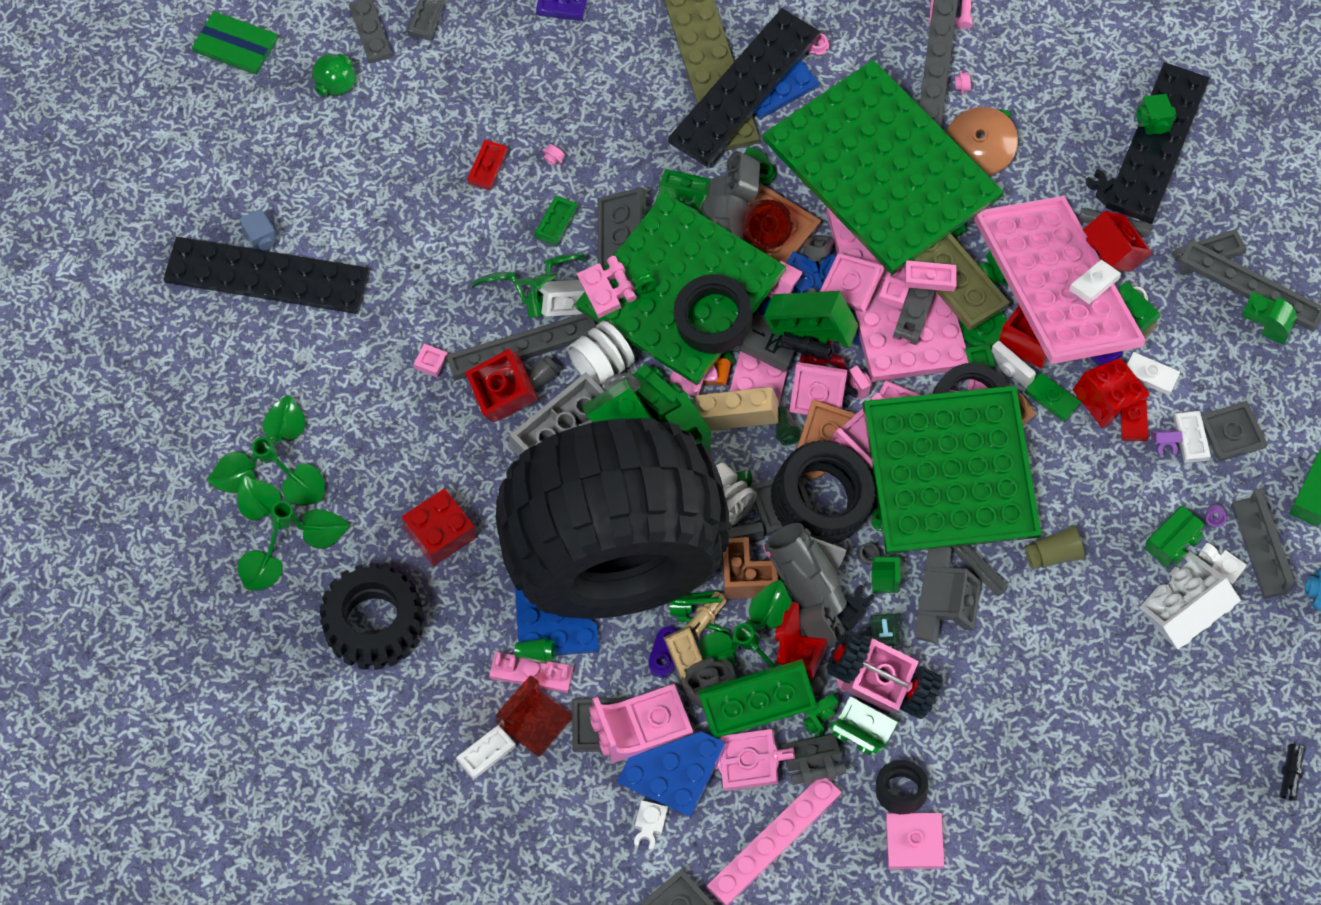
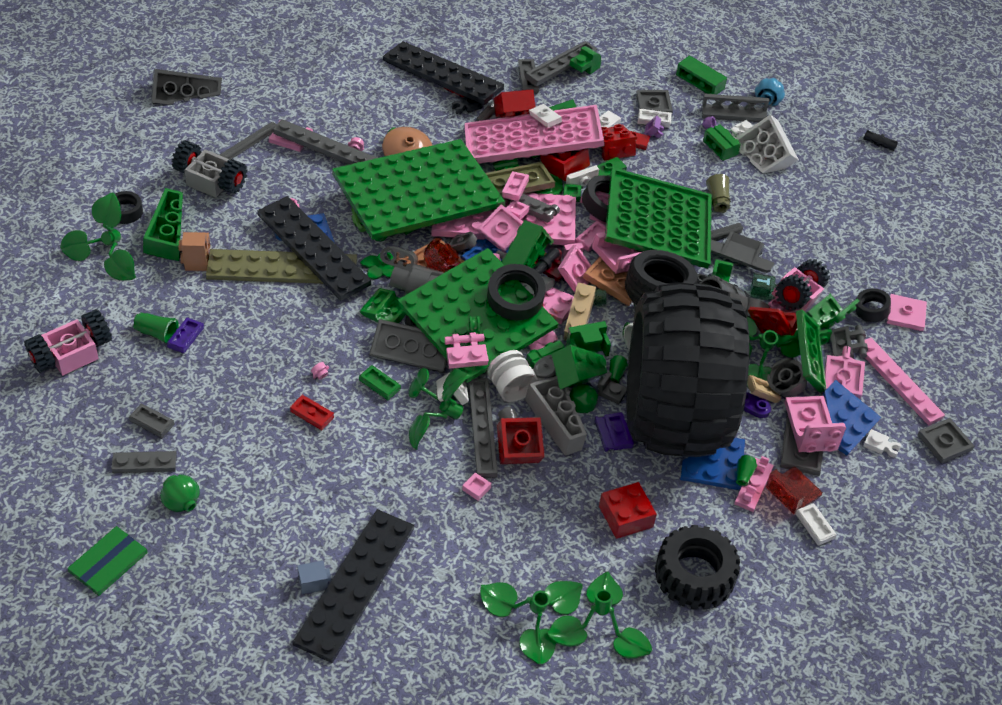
camera: 80 degrees left, 15 degrees down
(1155, 114) = (430, 60): green brick -> none

